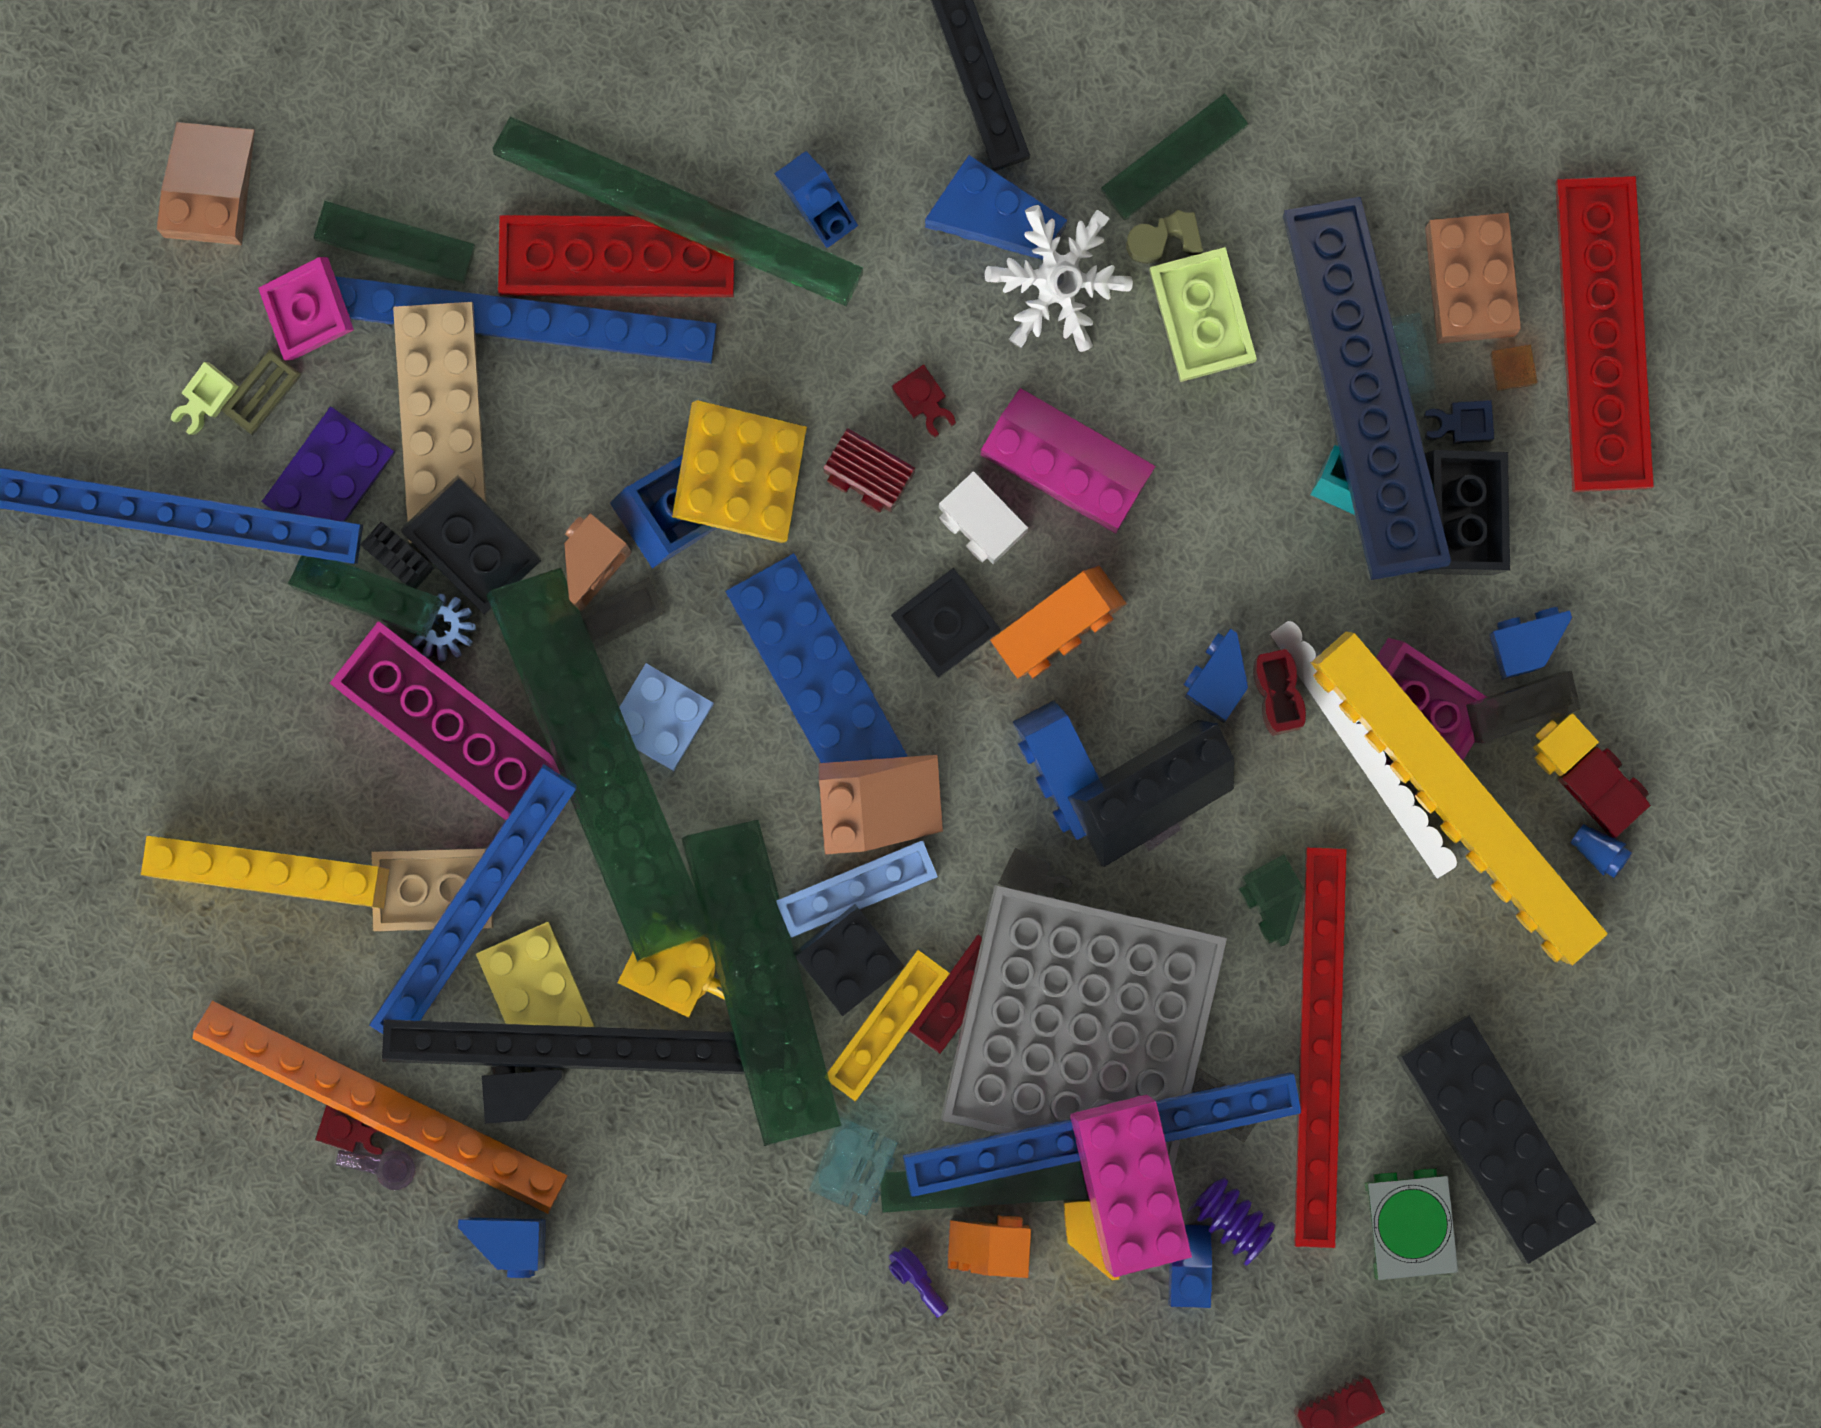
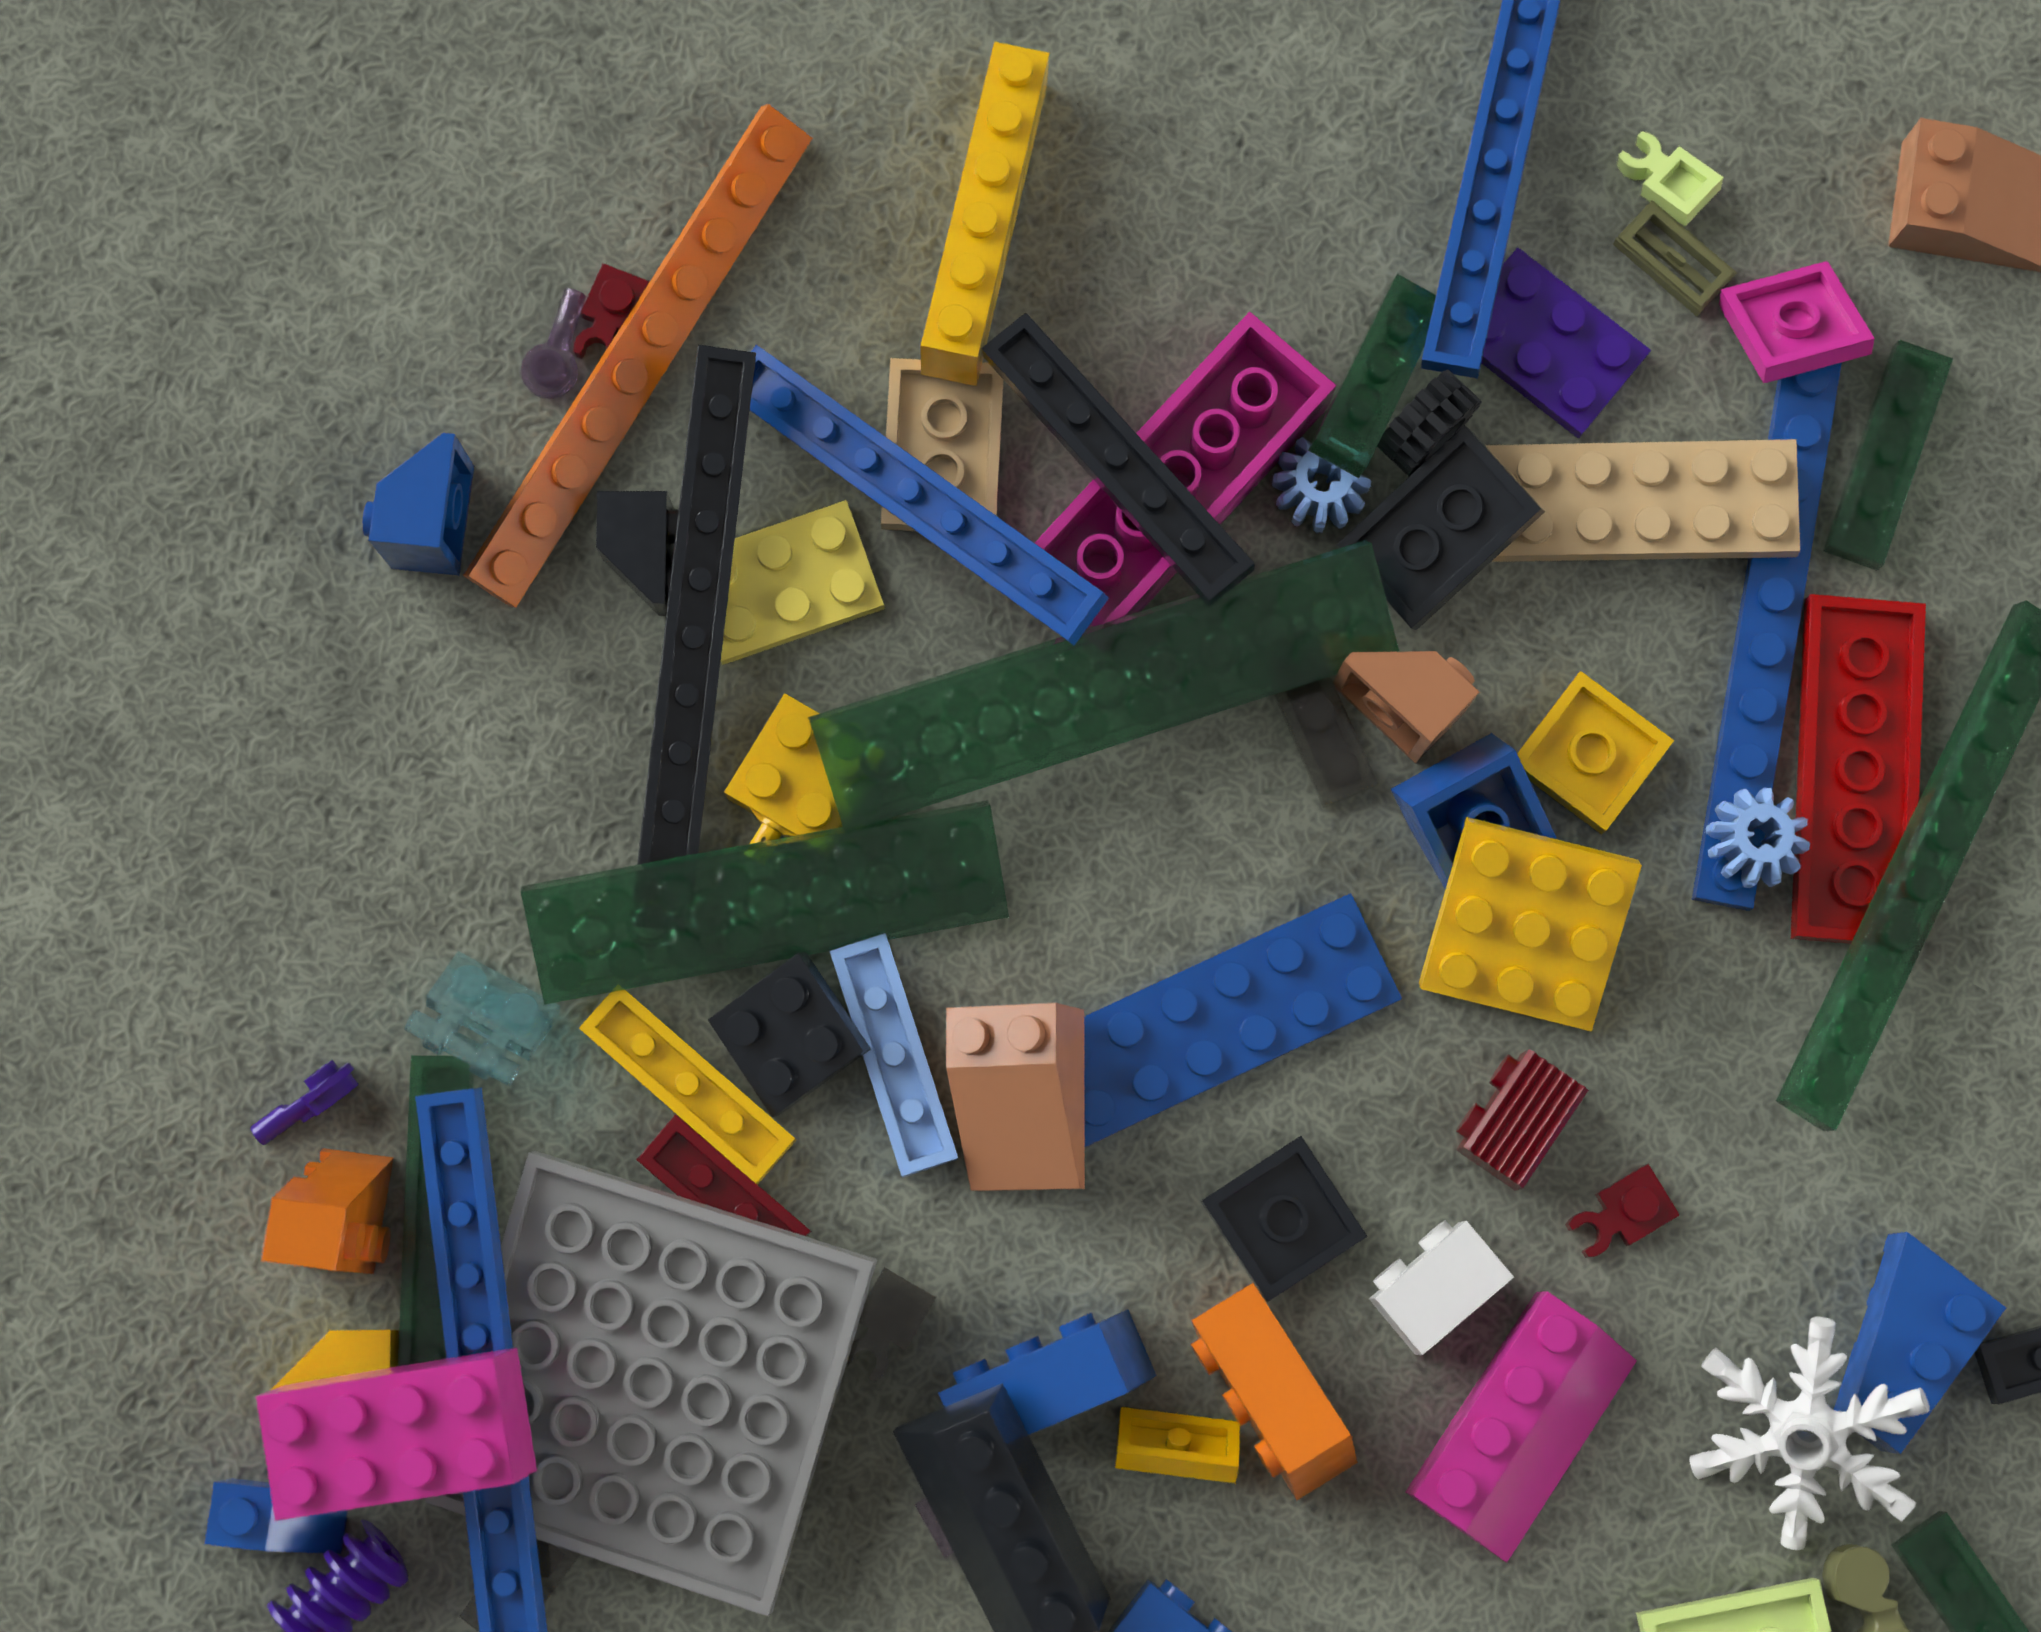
camera: 90 degrees right, 5 degrees down
(443, 766) = (1118, 460): none -> black plate
(617, 435) = (1592, 752): none -> yellow plate
(656, 327) = (1780, 840): none -> light blue gear
(663, 716) = (1171, 789): light blue plate -> none
(816, 198) = (1938, 1071): blue slope -> none
(1097, 682) = (1178, 1445): none -> yellow plate

